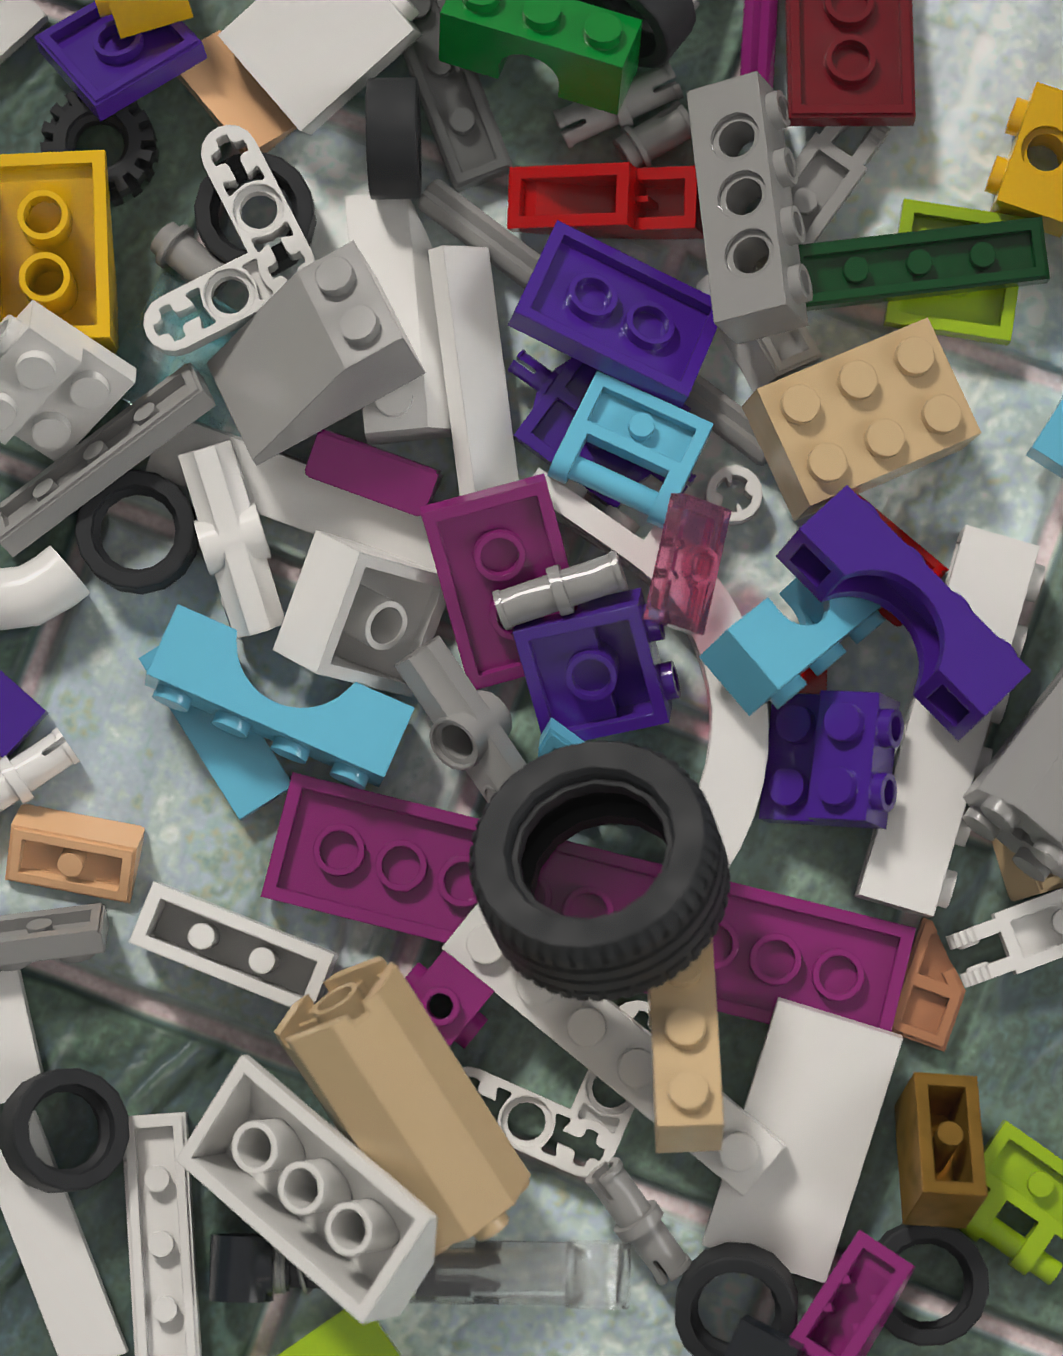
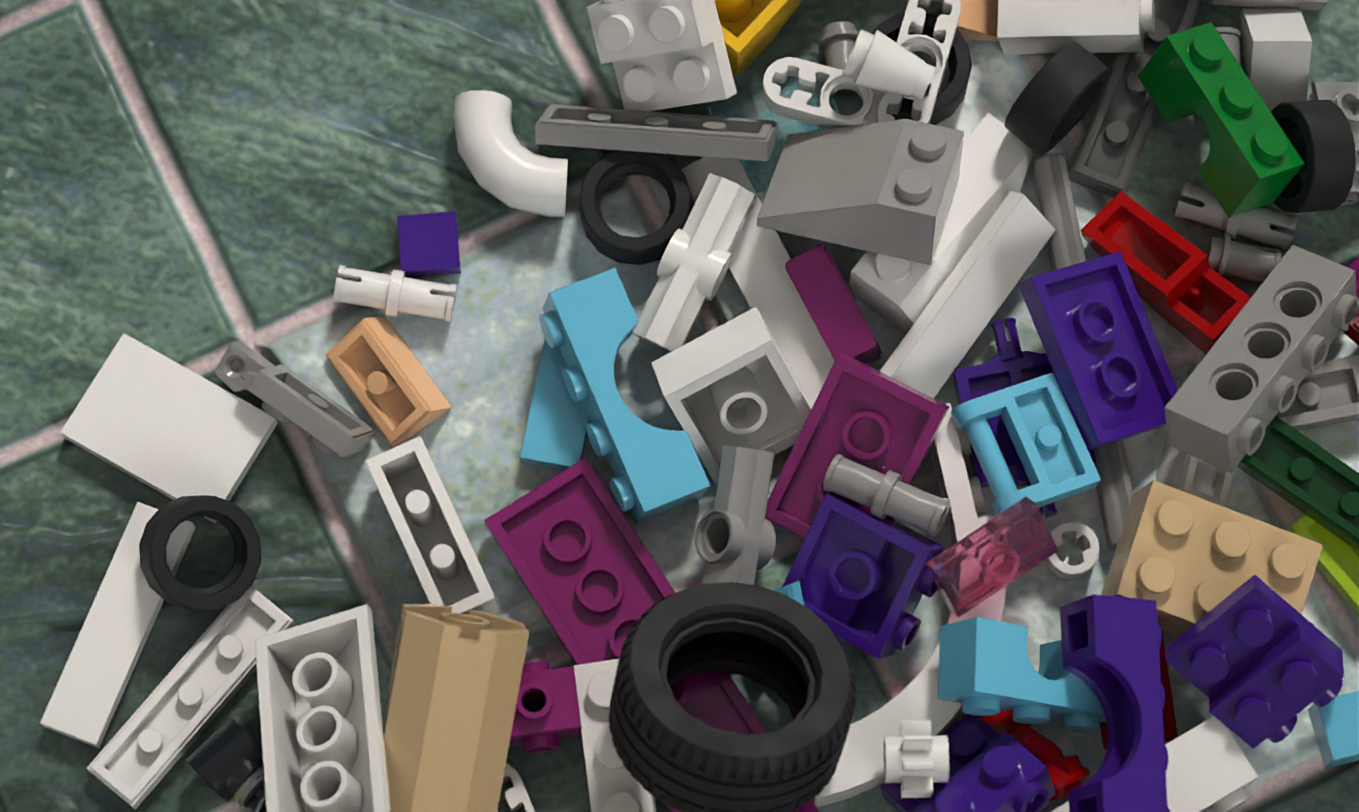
camera: 40 degrees right, 10 degrees down
(241, 240) = (887, 66): none -> white cone
(775, 778) = (916, 759): none -> white gear
(887, 677) = (1063, 770): none -> red plate
(964, 459) = (1258, 663): none -> dark purple plate

